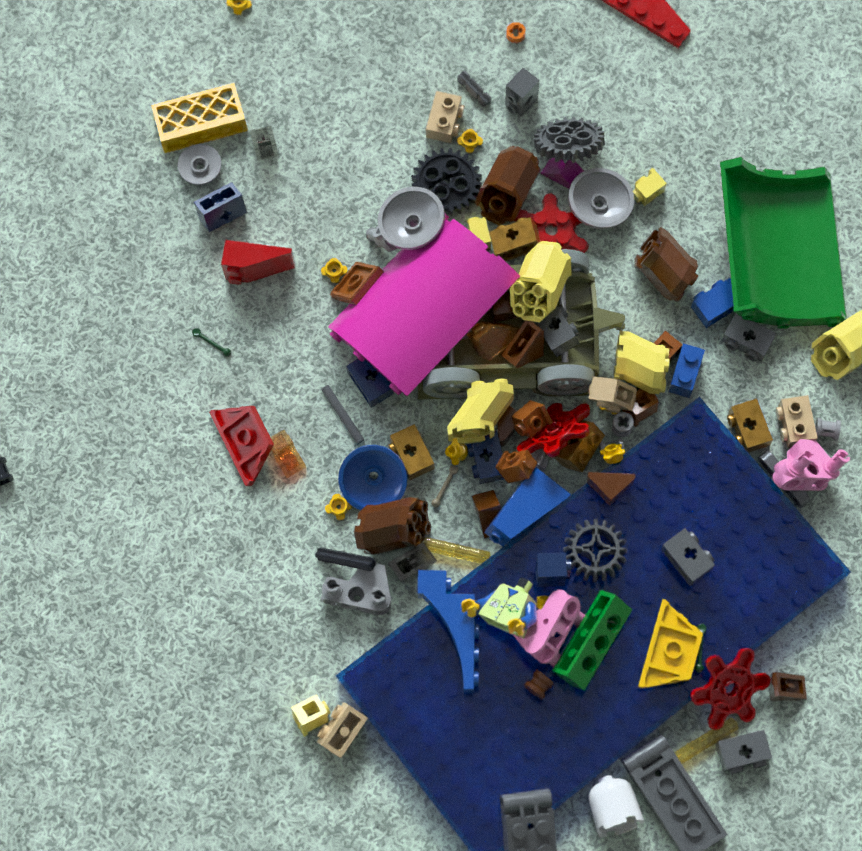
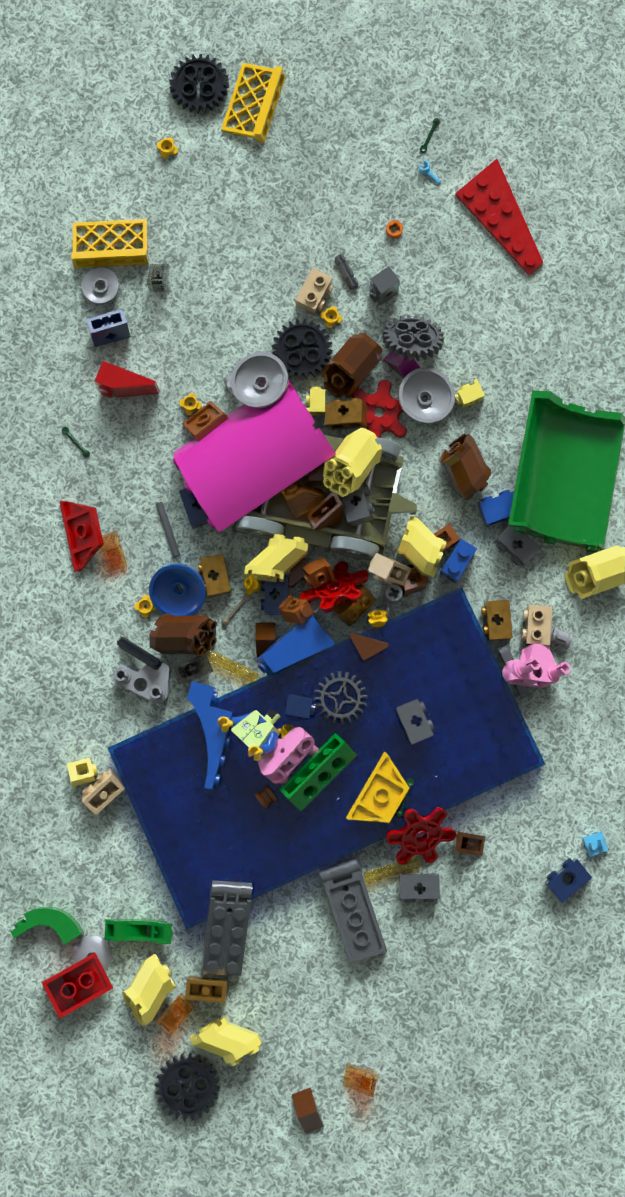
camera: 15 degrees right, 10 degrees up
(614, 806) = (303, 905): white cylinder -> none

